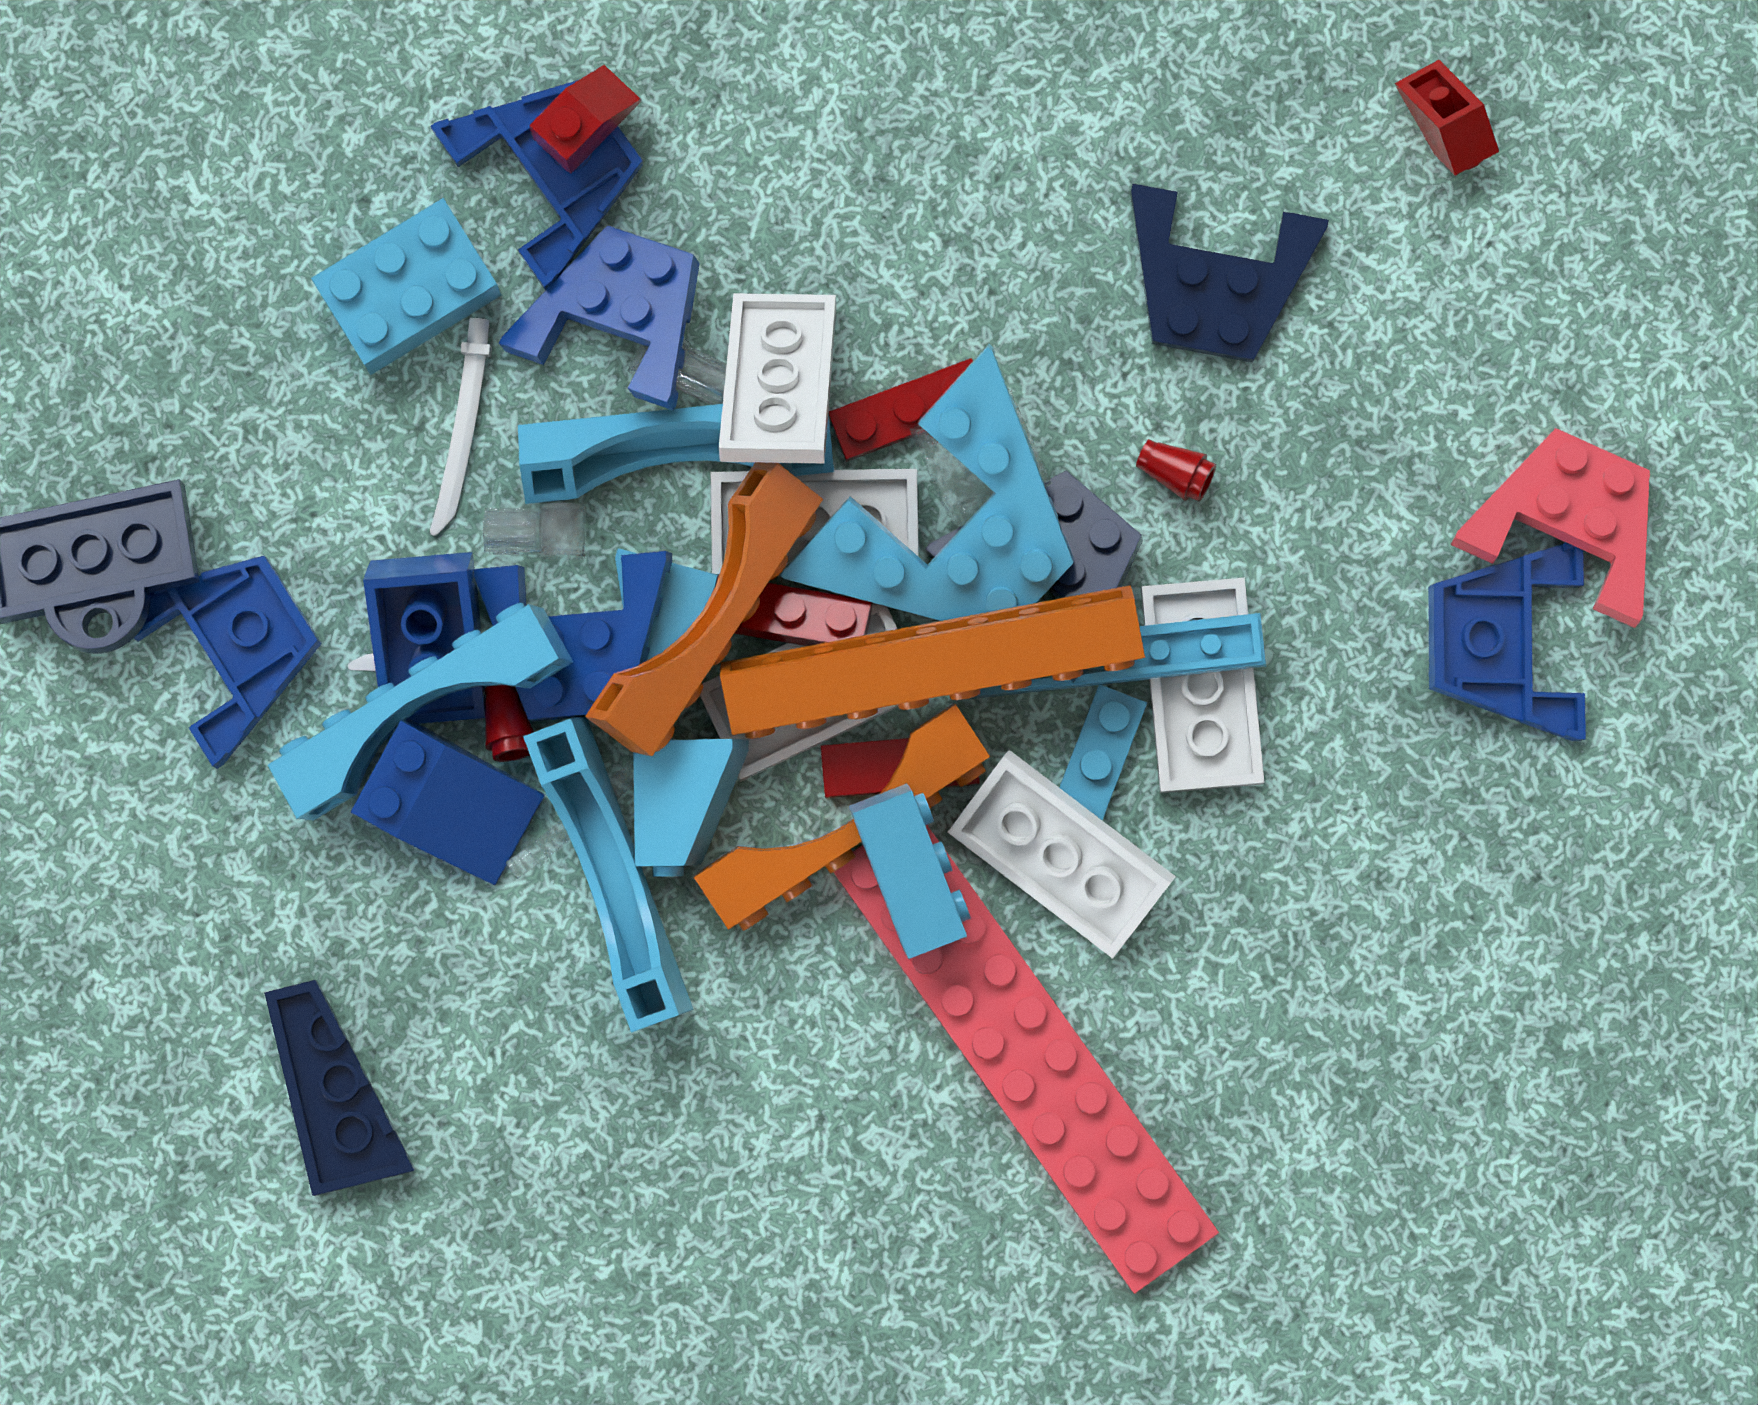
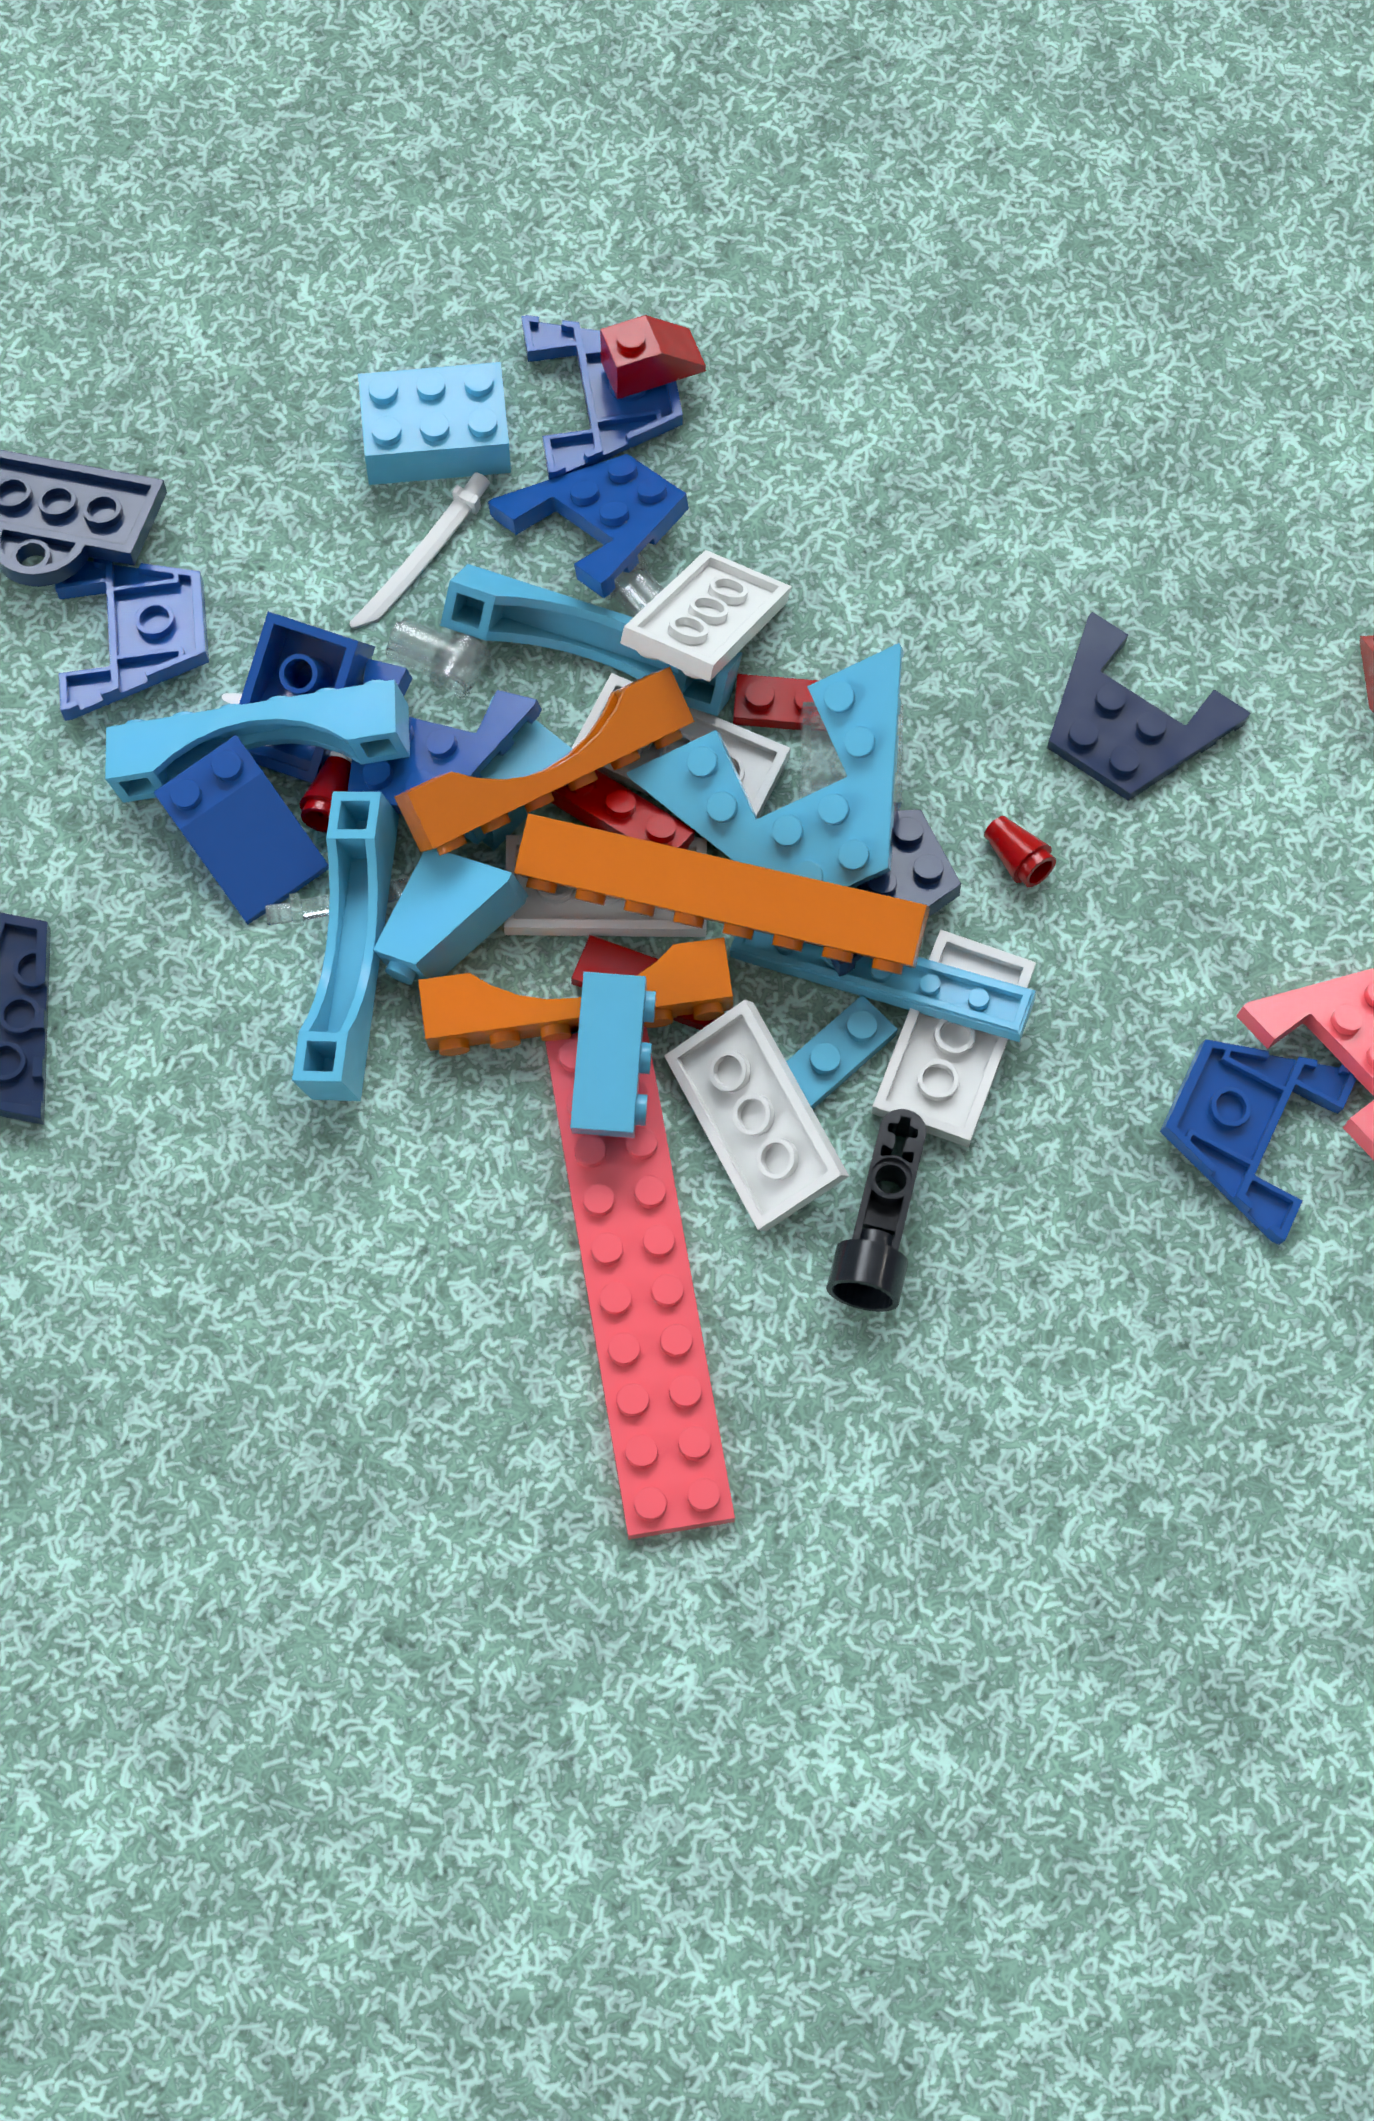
camera: 25 degrees right, 15 degrees down
(1229, 944) = (869, 1268): none -> black beam

